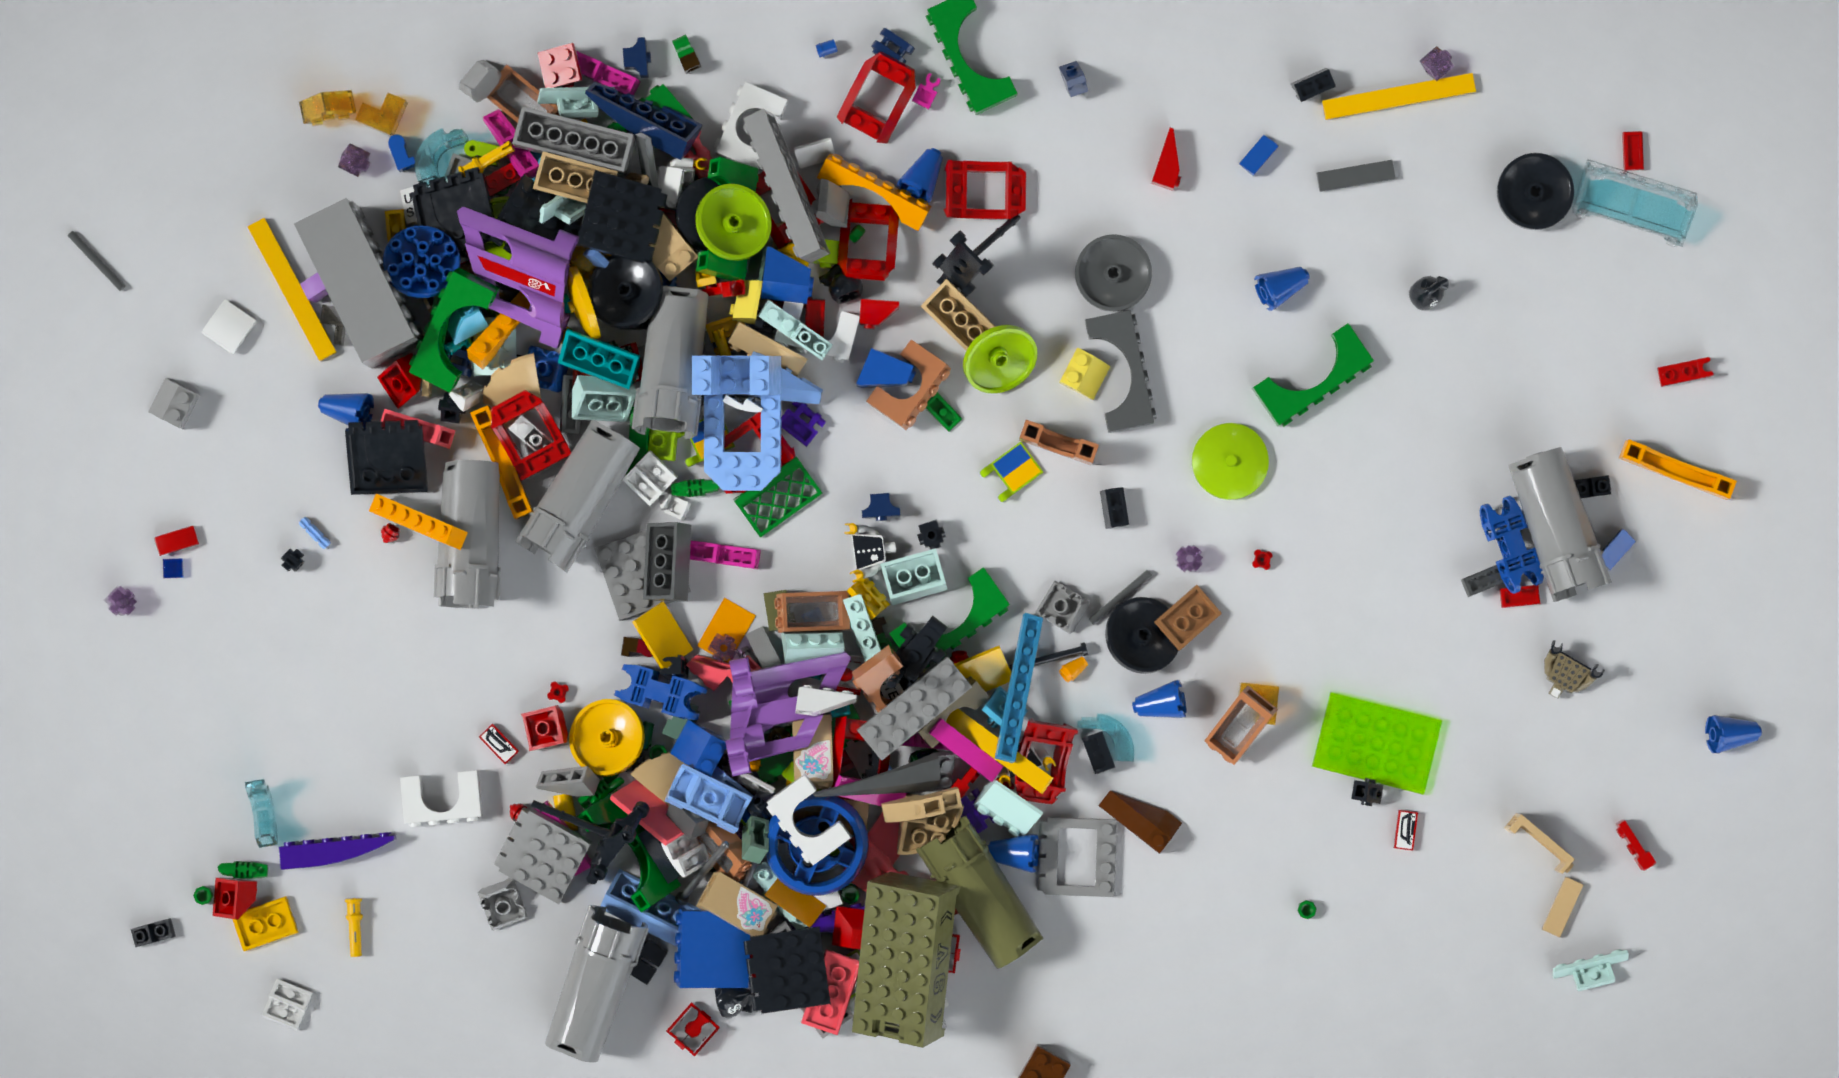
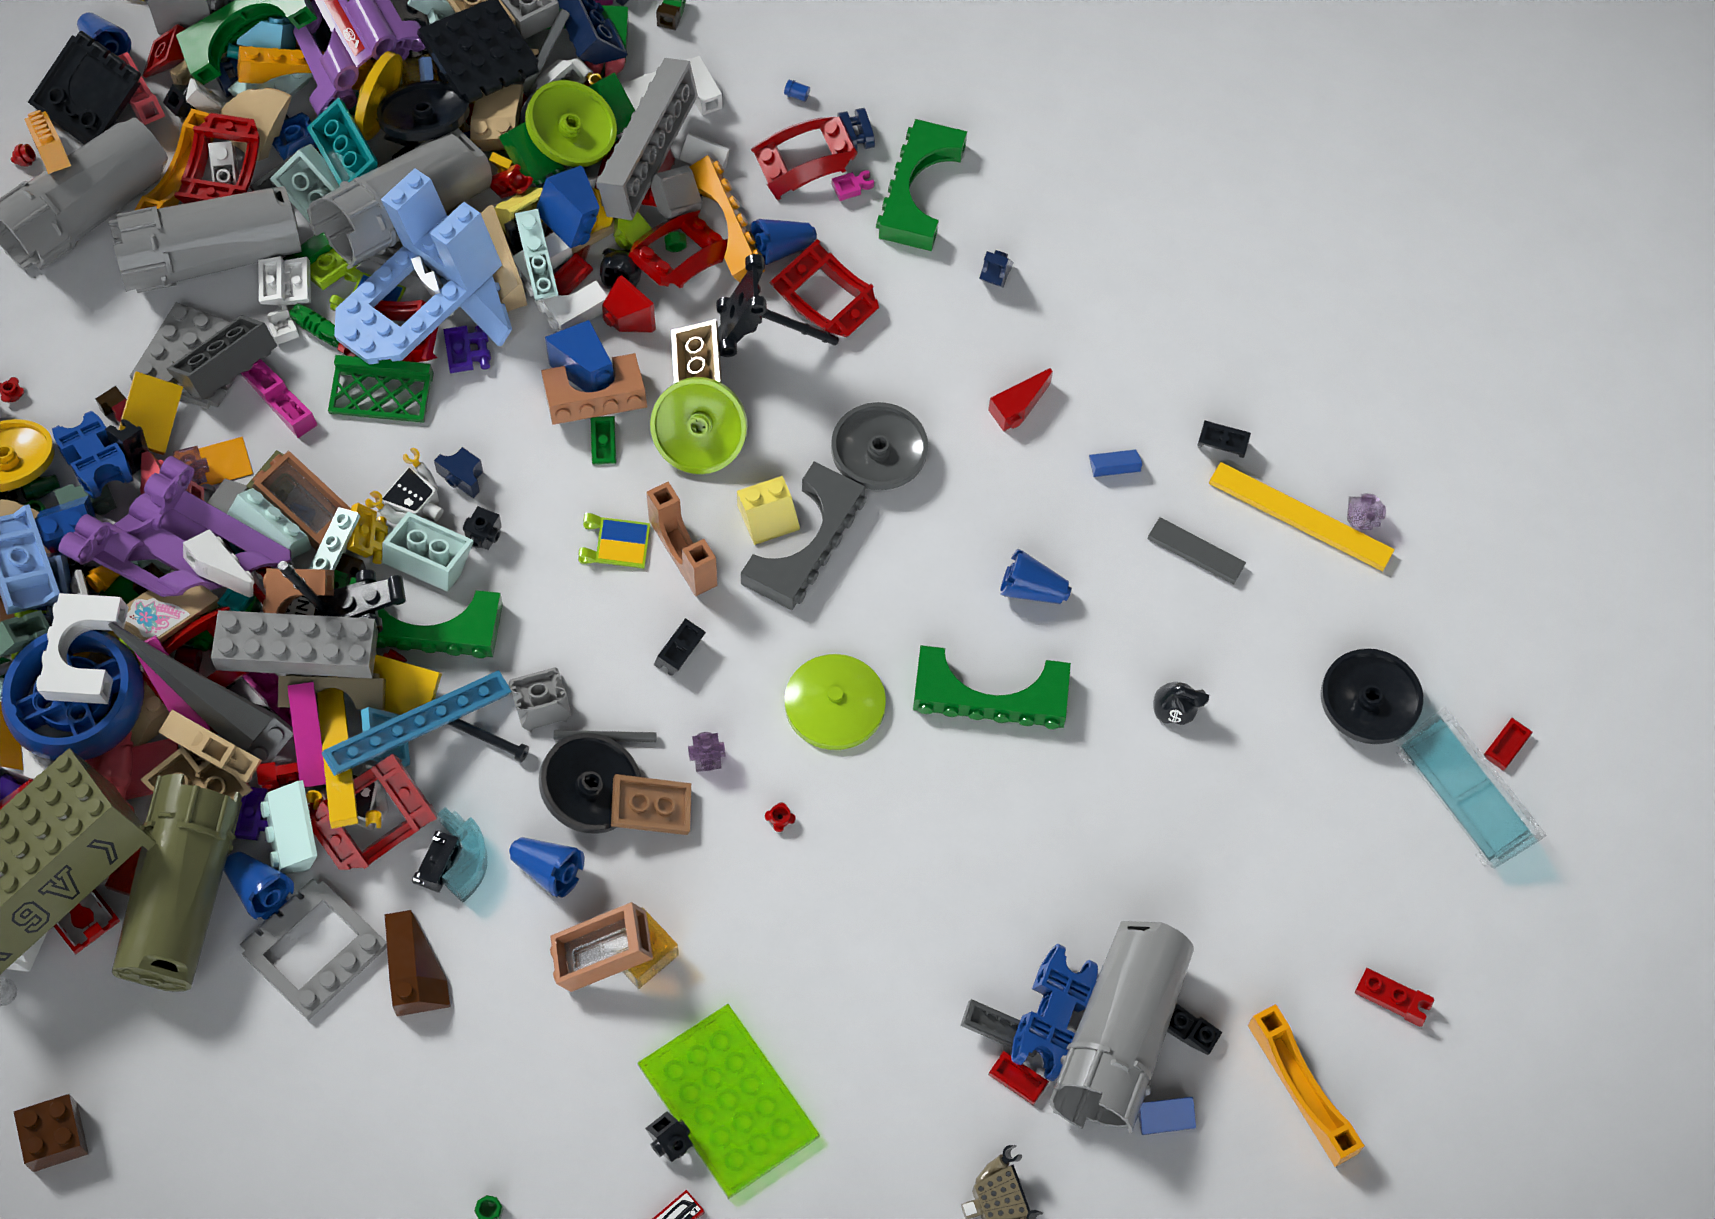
camera: 35 degrees right, 25 degrees down
(1072, 669) = (492, 761): light orange cone -> none

